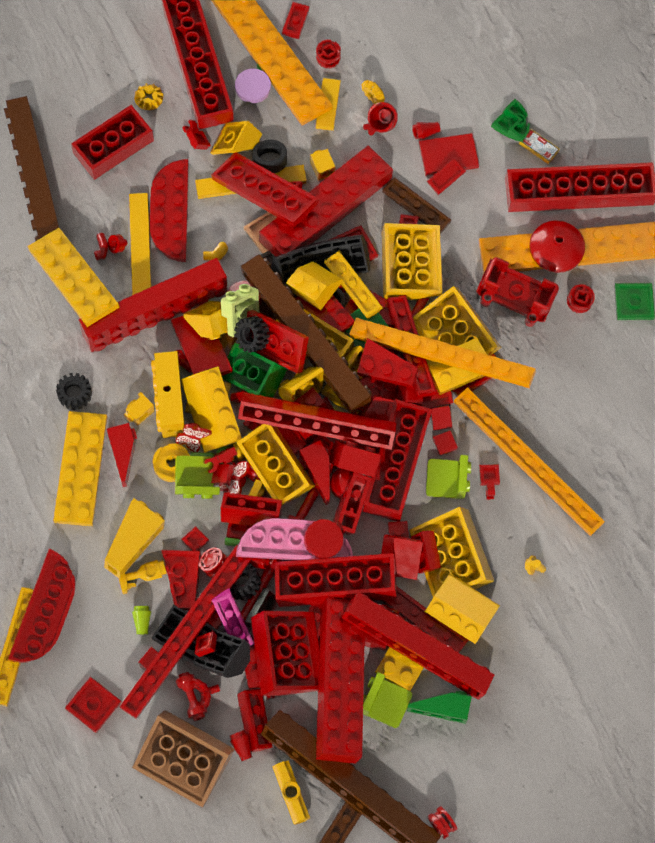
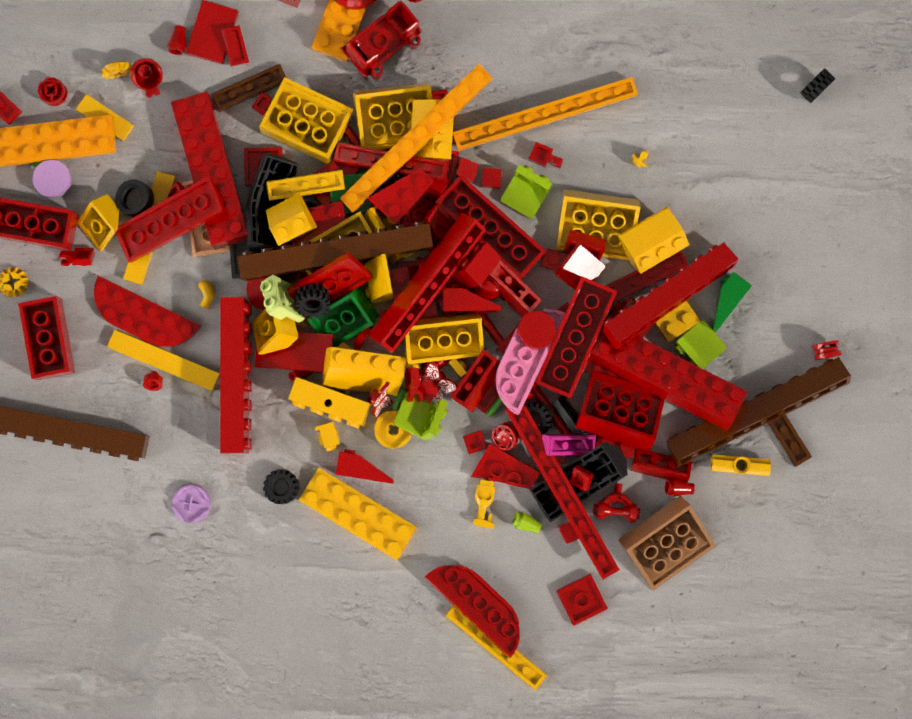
camera: 60 degrees left, 15 degrees up
(23, 324) = (191, 503): none -> lavender tile
(73, 277) = (173, 438): yellow plate -> none
(103, 245) = (148, 394): red arm -> none
(134, 535) = (446, 493): yellow slope -> none
(322, 164) = (165, 153): yellow brick -> none

